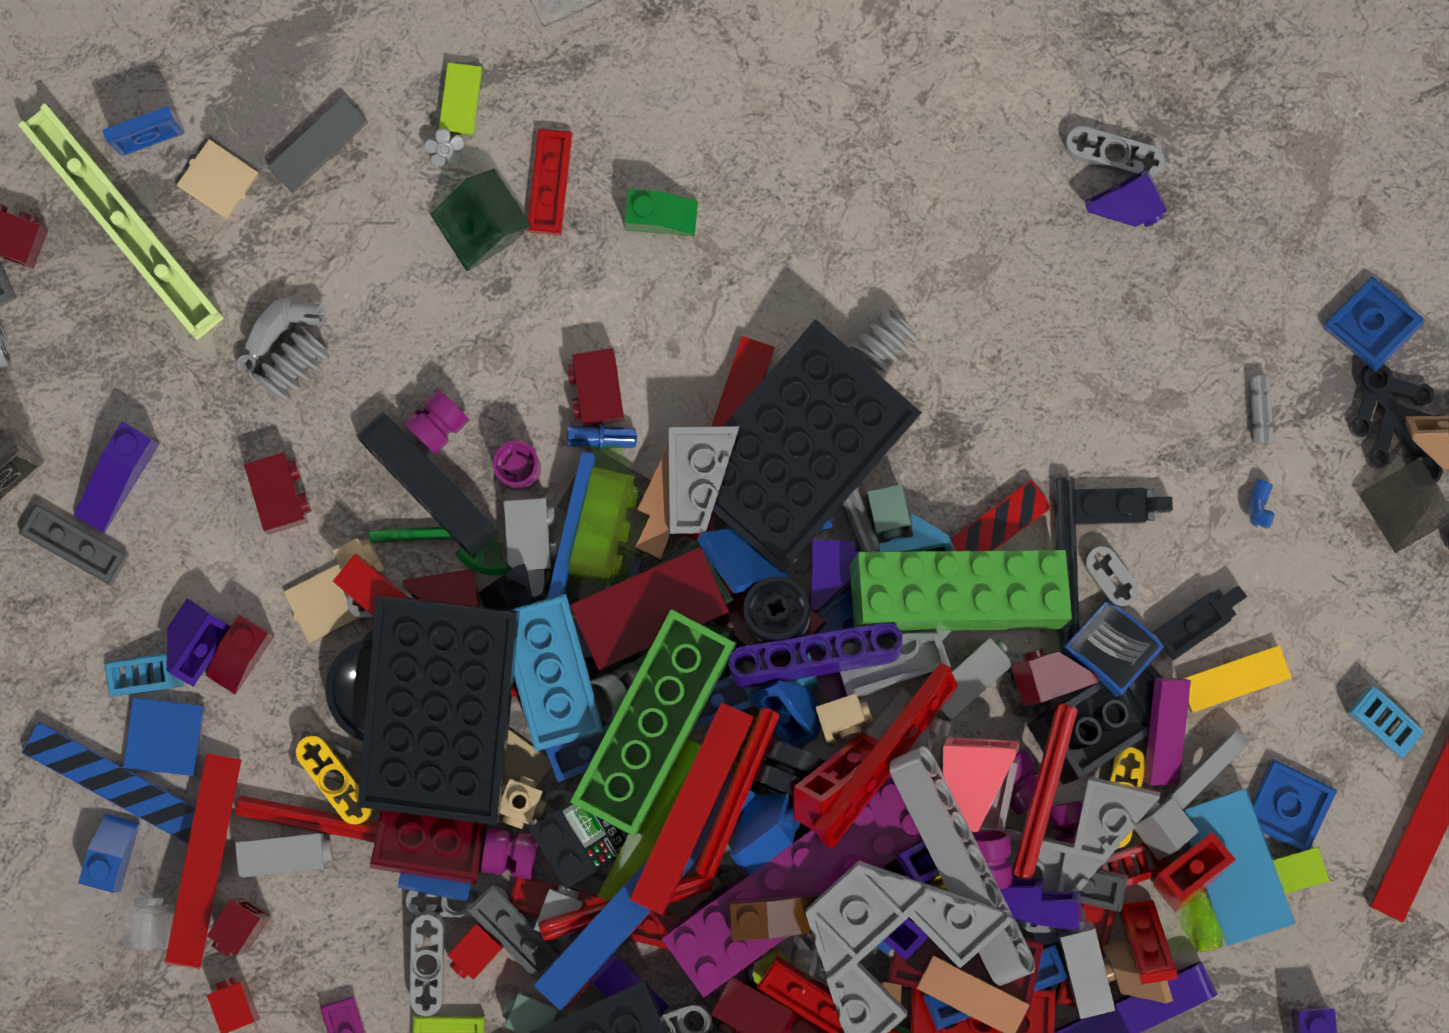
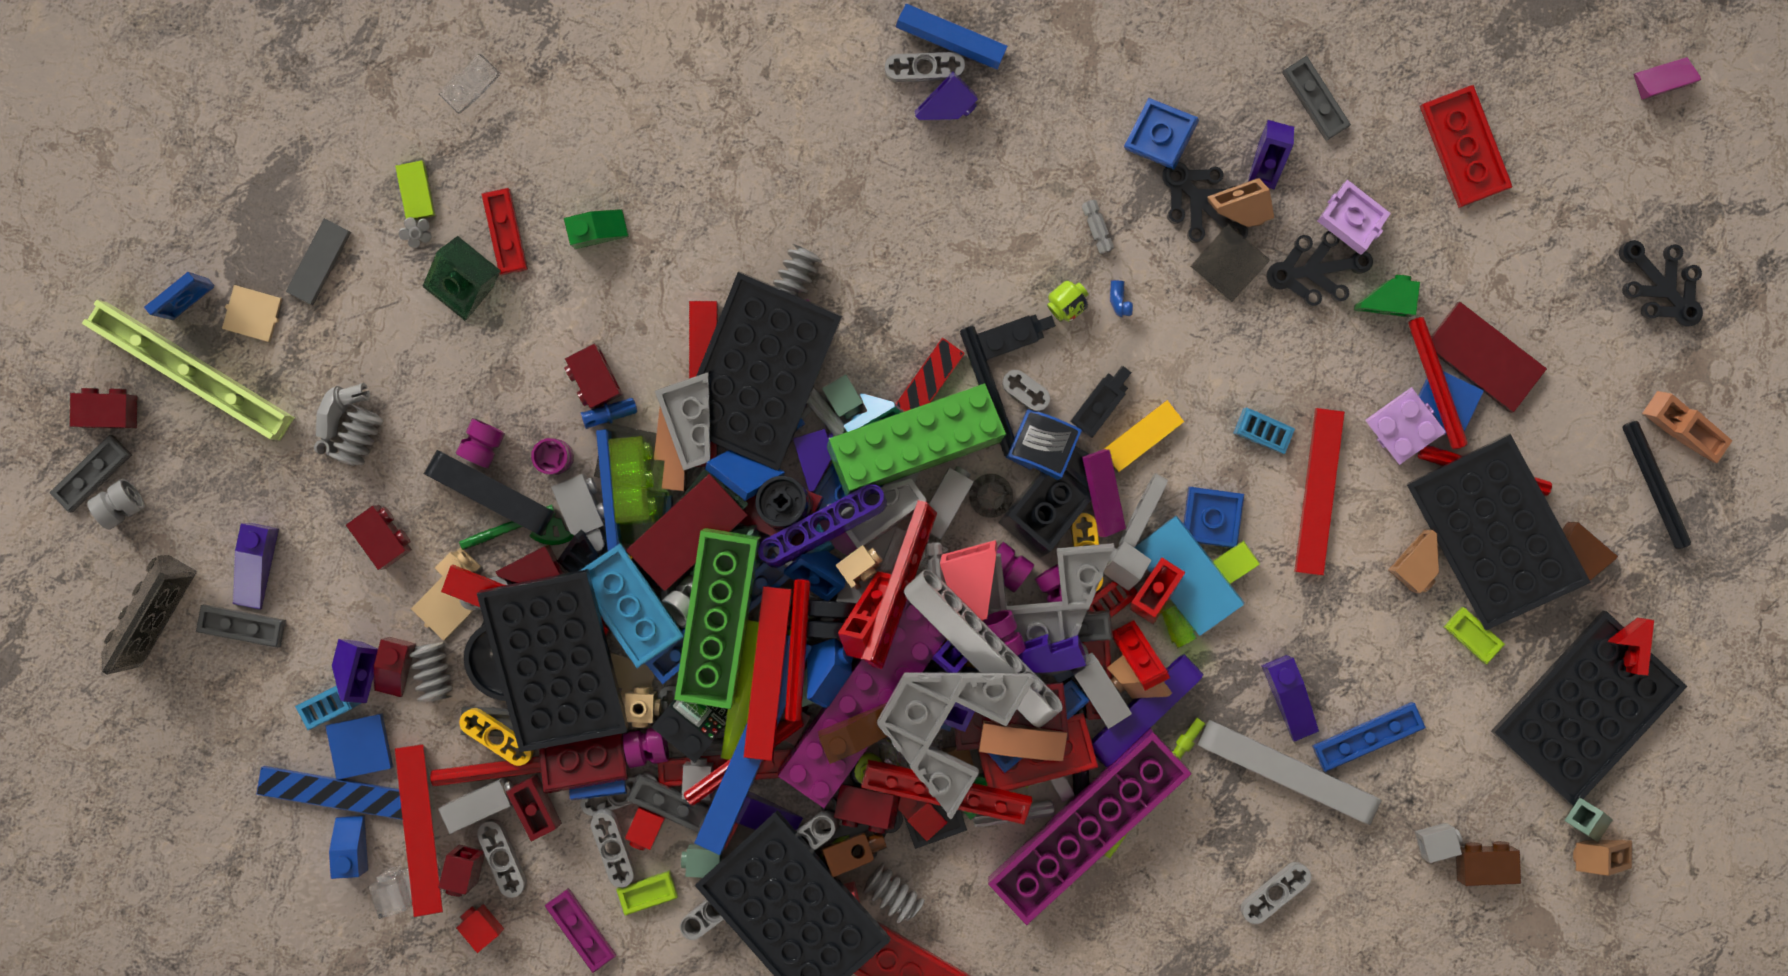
camera: 25 degrees left, 5 degrees up
(278, 905) = (517, 873): none -> light grey beam
(282, 675) = (431, 672): none -> light grey piece
(350, 880) = (534, 807): none -> dark red brick
(1044, 791) = (1027, 570): red axle -> none
(1049, 676) = (1002, 482): slope -> none
(1158, 127) = (951, 36): none -> blue tile
(1197, 486) = (1068, 301): none -> lime head

